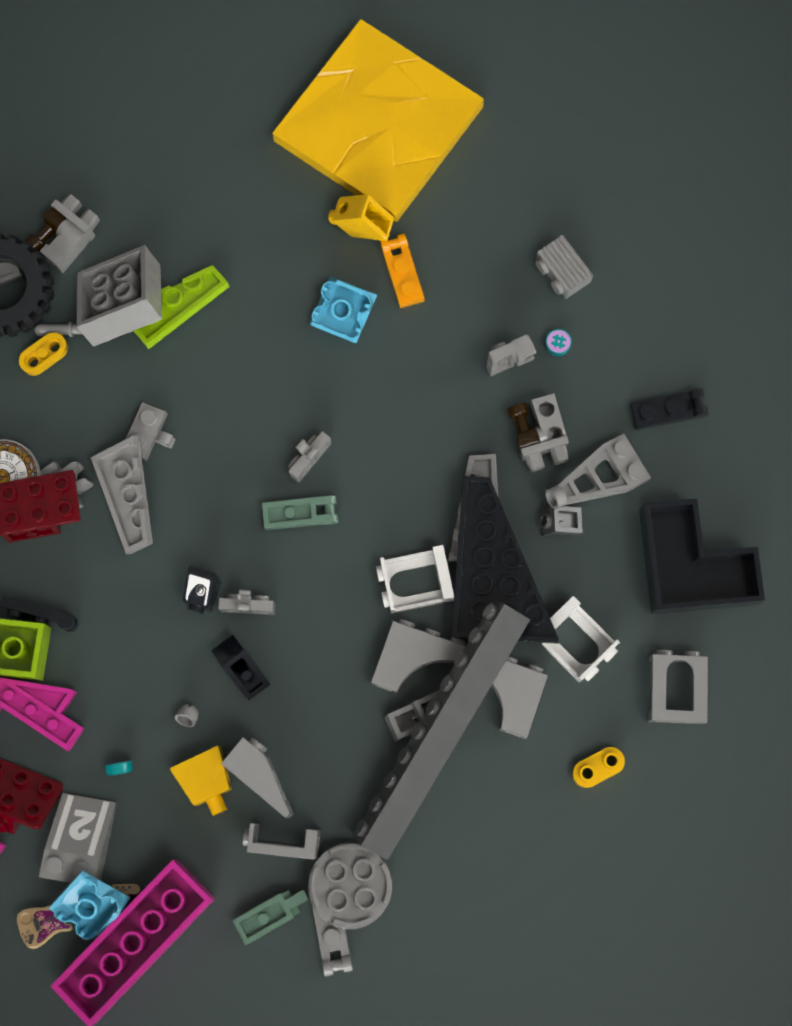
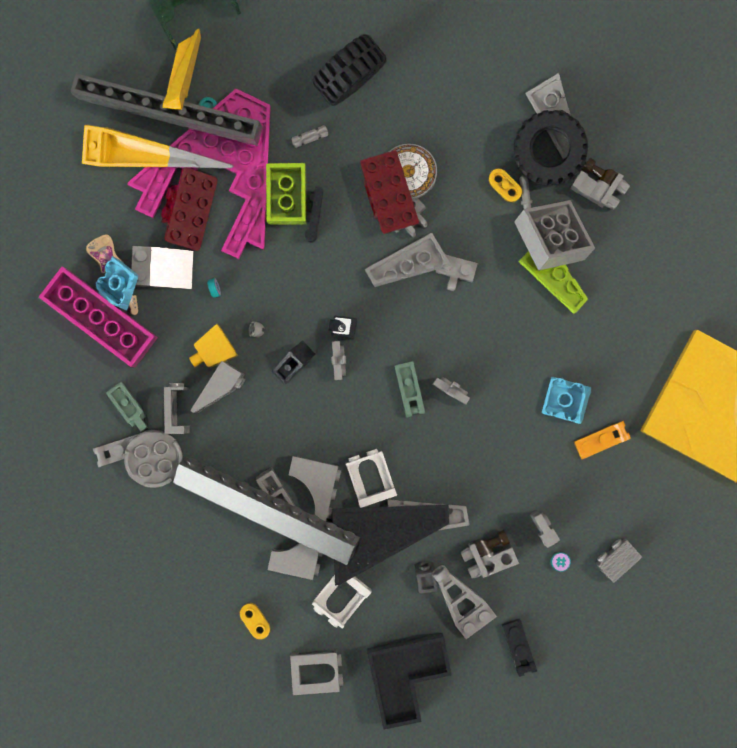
camera: 80 degrees right, 10 degrees up
(362, 217) = (637, 399): yellow torso -> none

